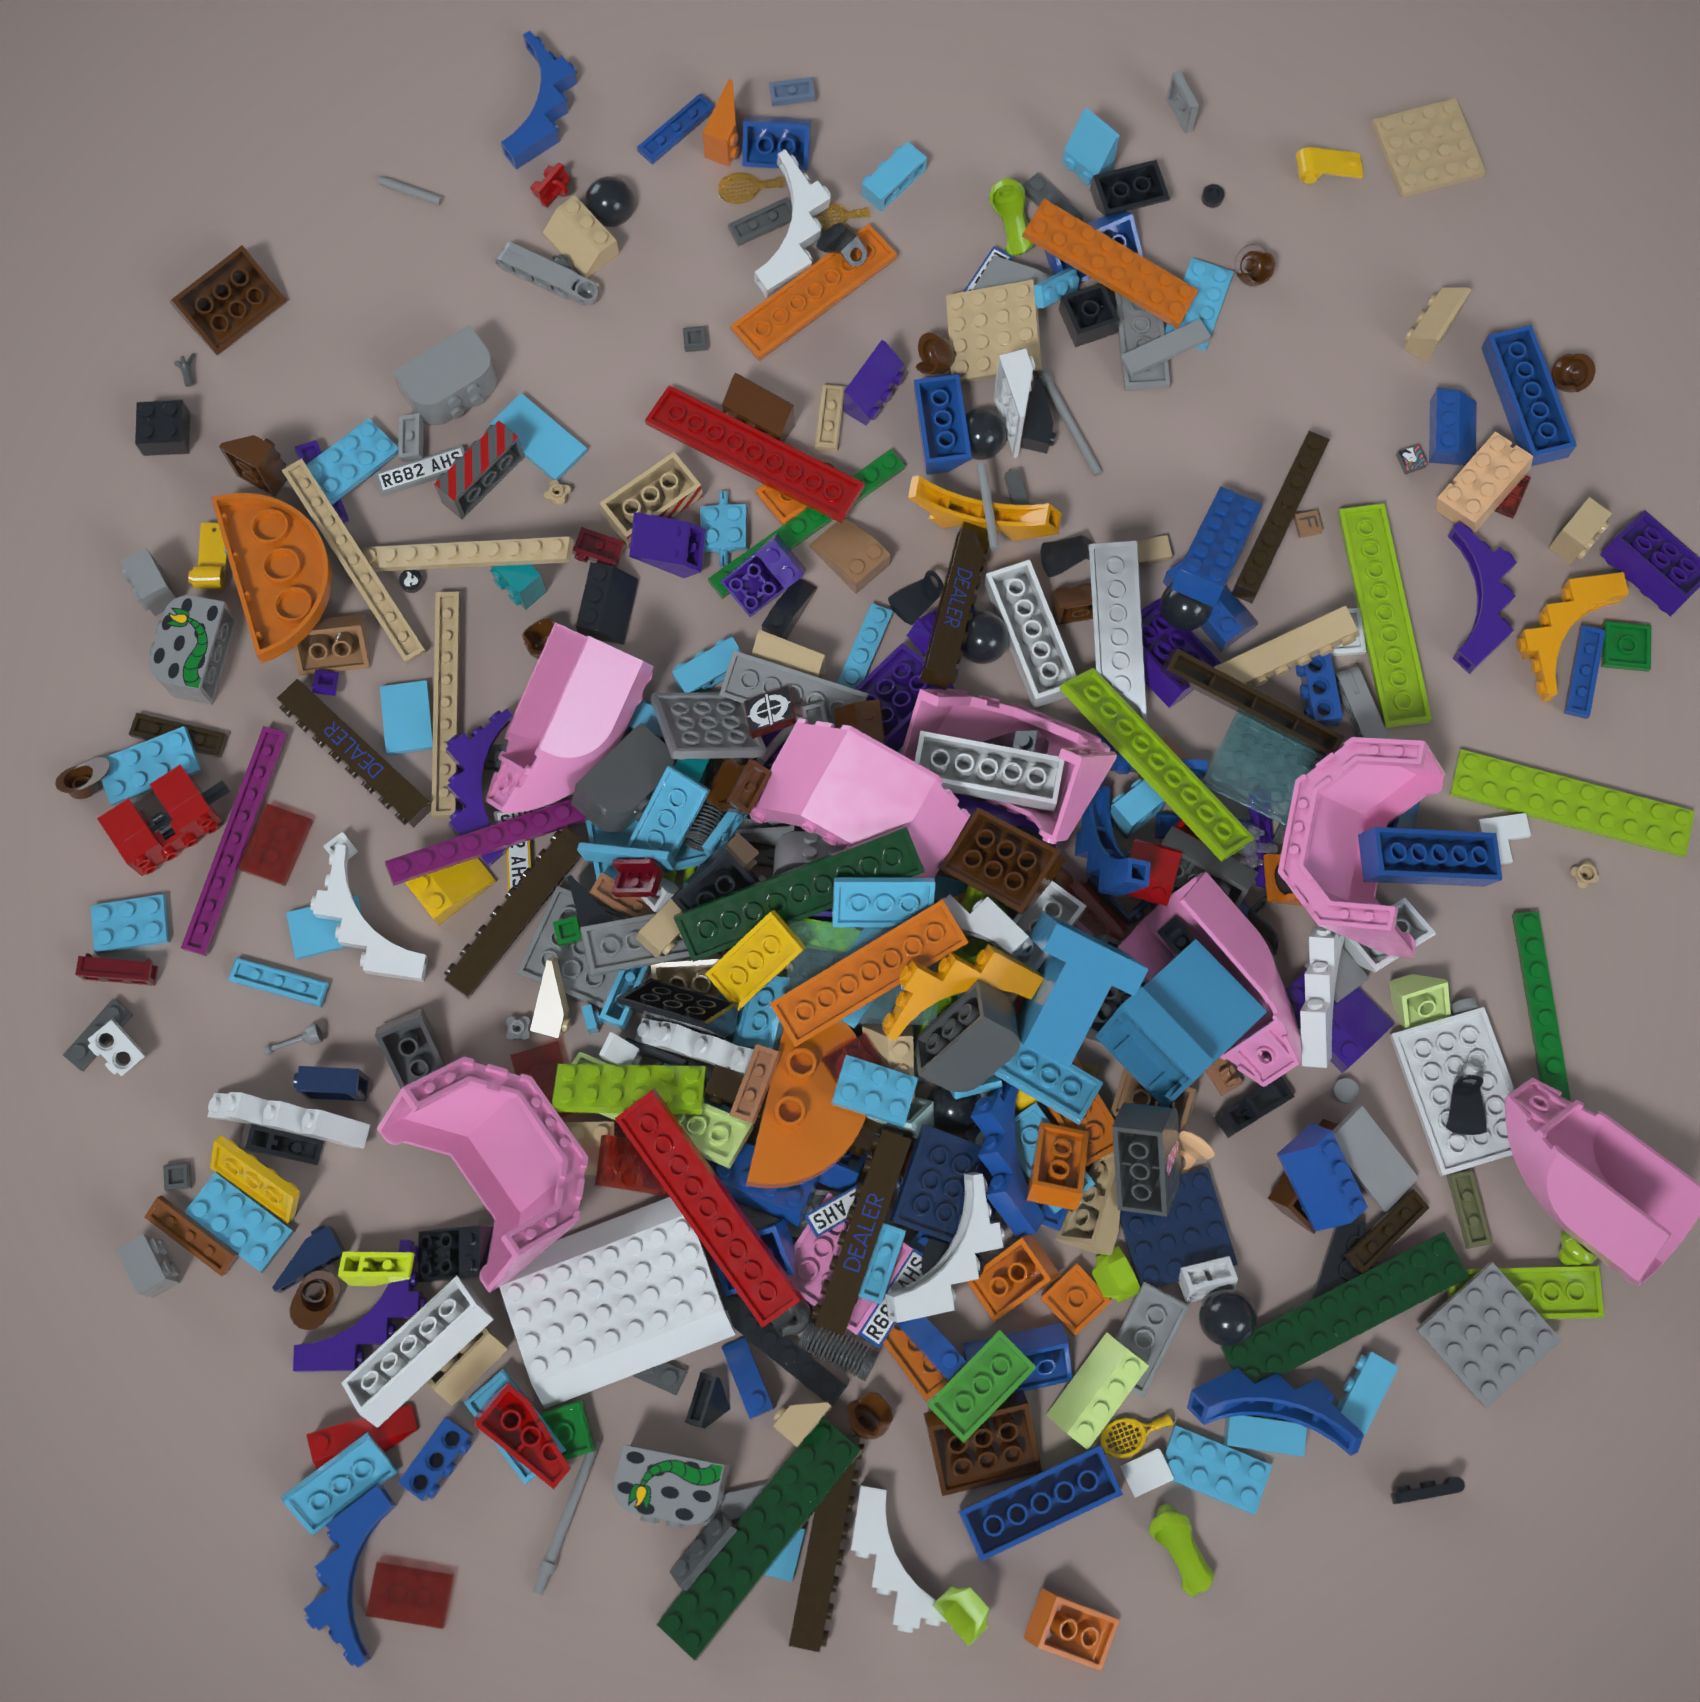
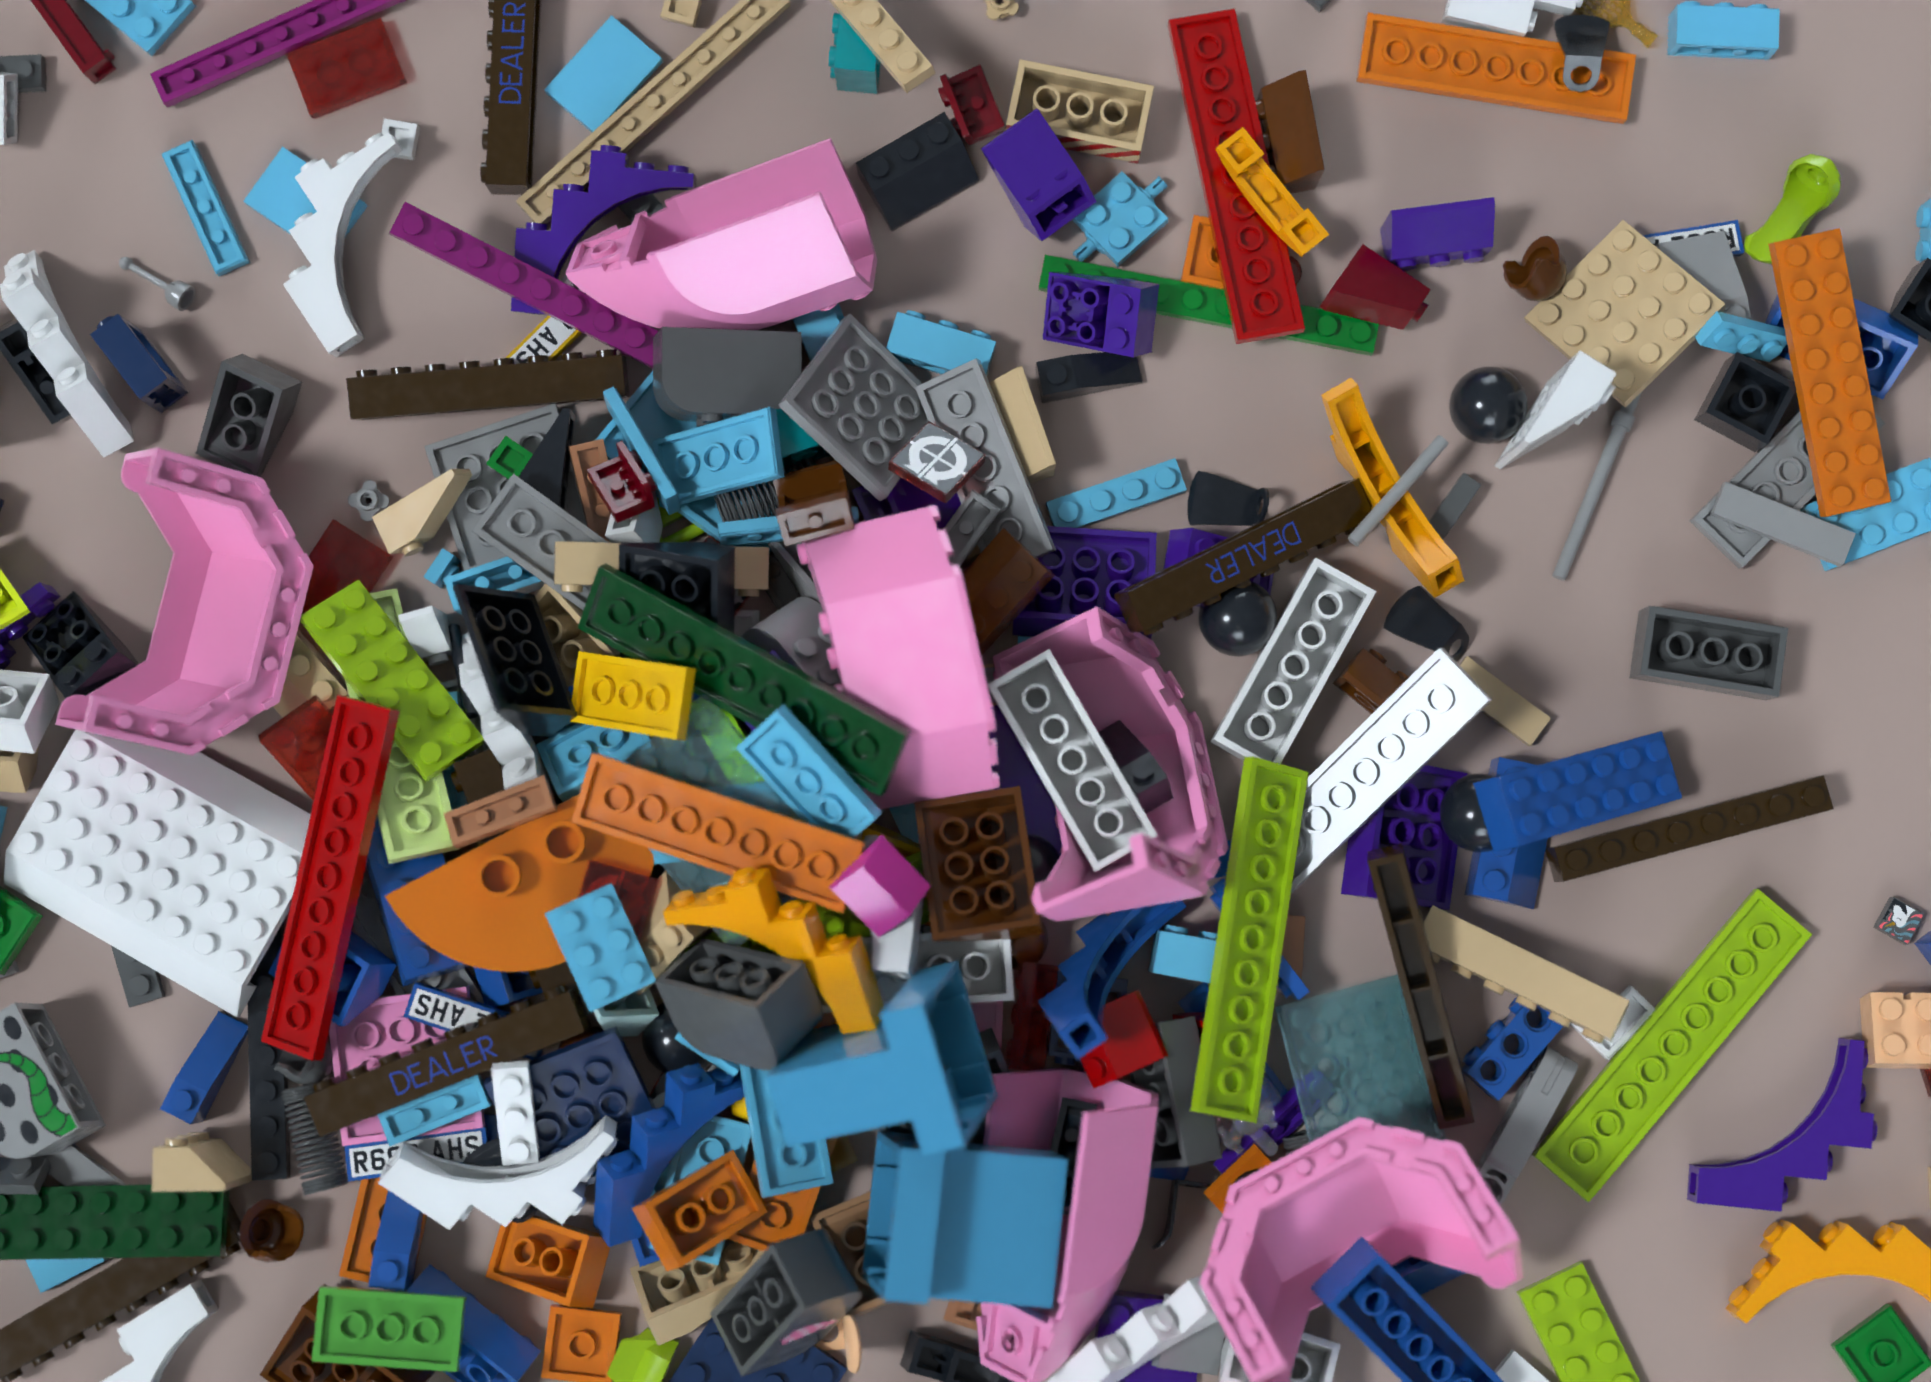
camera: 50 degrees right, 10 degrees up
(451, 888) = (452, 297): yellow slope -> none
(536, 636) = (810, 128): reddish brown helmet -> none
(707, 1402) = (148, 1047): black slope -> none
(775, 744) = (908, 498): light grey bar -> none
(781, 445) = (1268, 194): none -> light orange slope
(829, 417) = (1360, 218): tan tile -> none
(851, 554) = (1213, 385): medium nougat slope -> none
(876, 436) = (1376, 292): none -> dark red slope
(922, 1217) = (515, 1113): none -> white plate
(942, 423) = (1458, 351): blue slope -> none
(972, 912) = (880, 887): none -> dark pink slope
(1038, 189) = (1858, 229): dark grey plate -> none
(1039, 422) = (1557, 461): black slope -> none
(1199, 434) = (1708, 653): none -> dark grey brick
(1308, 524) = (1709, 866): medium nougat tile -> none
(1584, 672) = (1805, 1331): blue plate -> none

